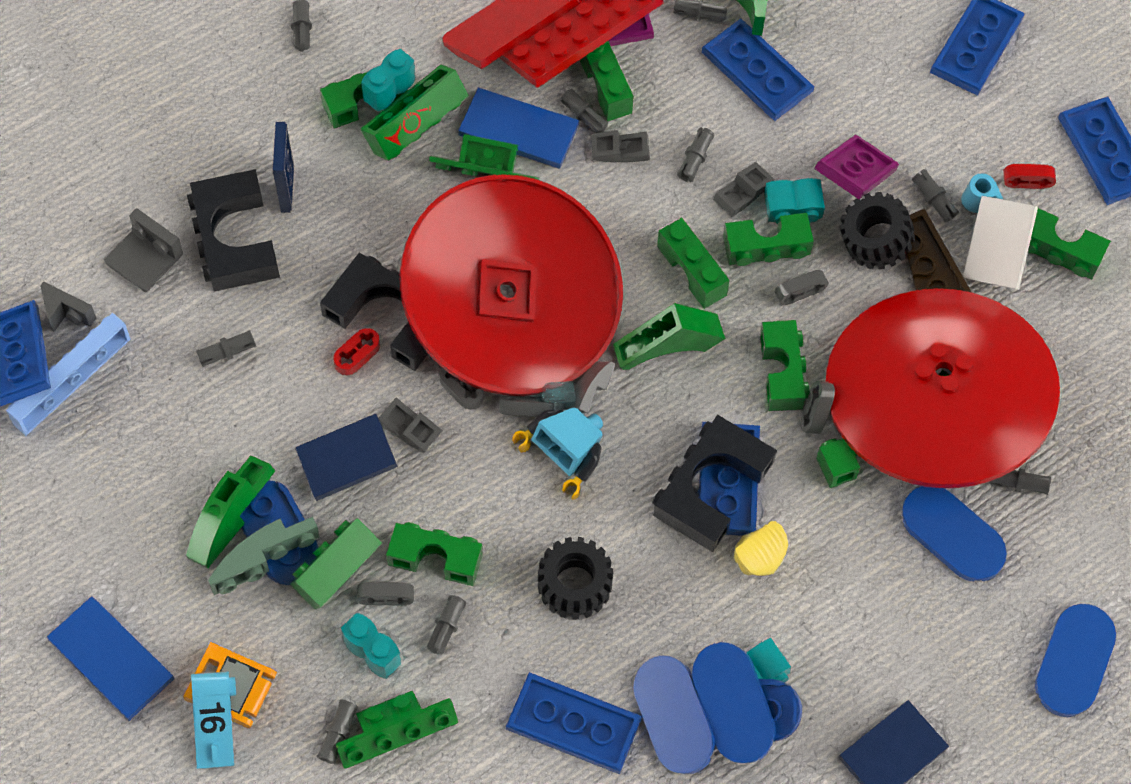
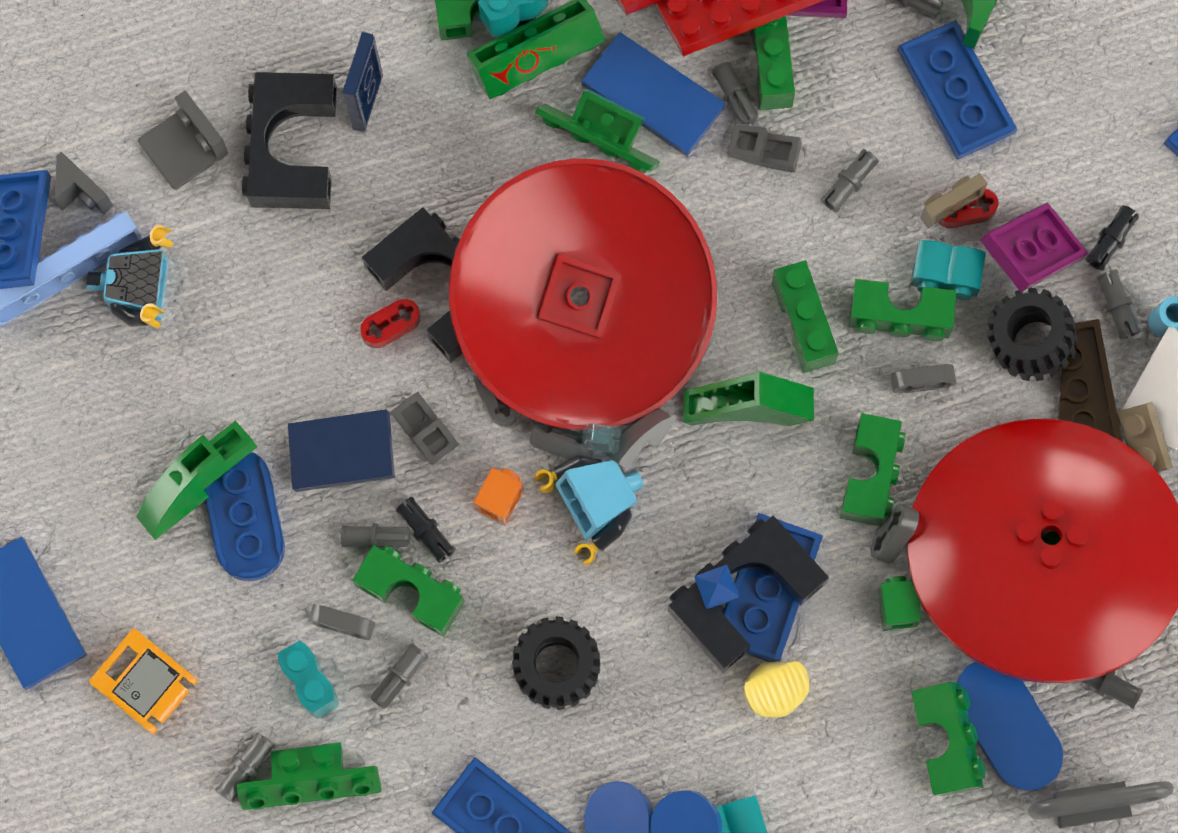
camera: 20 degrees right, 10 degrees up
(134, 367) = (136, 280): none -> torso
(213, 718) = (111, 716): medium azure door -> none
(226, 348) = (245, 282): dark grey pin -> none
(250, 556) = (201, 542): sand green slope -> none
(334, 562) = (294, 572): green brick -> none
(388, 520) = (373, 535): none -> dark grey axle
(434, 503) = (425, 529): none -> black pin
(487, 460) = (499, 495): none -> orange brick
(689, 480) = (716, 587): none -> blue slope
(743, 190) = (893, 238): dark grey slope -> none
(788, 140) = (963, 193): none -> dark tan plate
(792, 152) = (973, 215): none -> red beam
(914, 148) = (1112, 237): none -> black pin
(925, 574) = (958, 767): none -> green arch
(987, 282) = (1145, 435): none -> dark tan plate
(1047, 570) = (1098, 802): none -> dark grey bar

